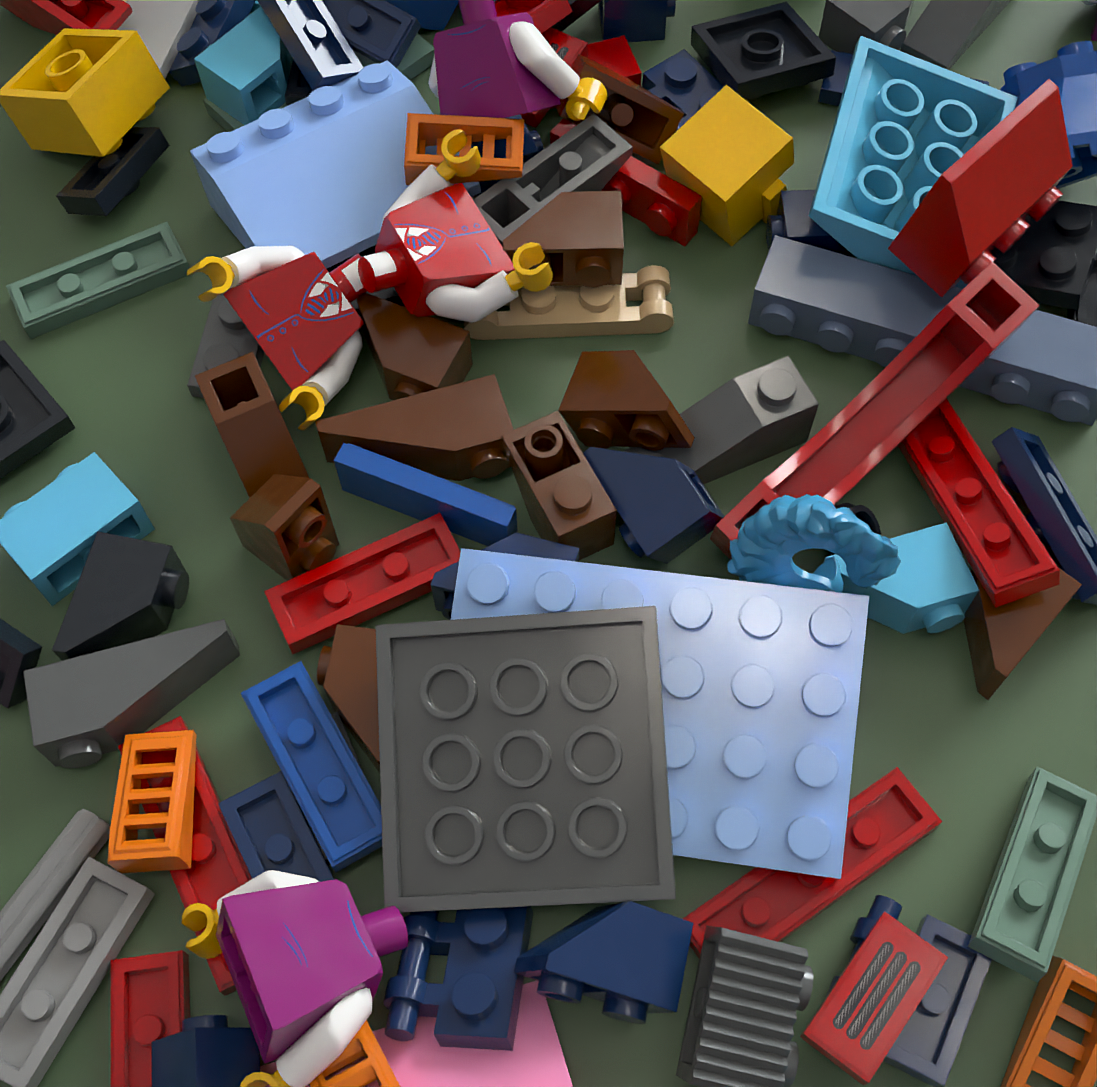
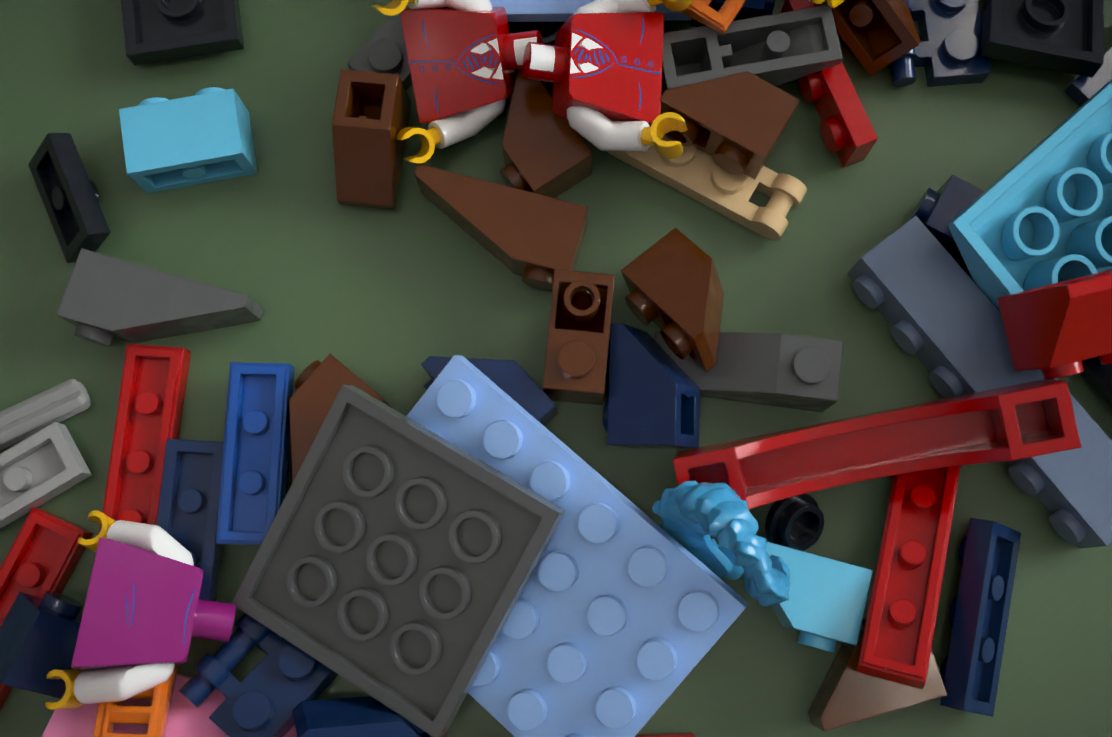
camera: 35 degrees right, 15 degrees up
(122, 596) = (189, 225): black slope -> none
(175, 850) = (92, 414): orange slope -> none
(287, 525) = (344, 243): reddish brown slope -> none
(362, 583) = (382, 323): red plate -> none
(424, 495) = (472, 279): blue tile -> none
(732, 161) = (924, 120): yellow plate -> none

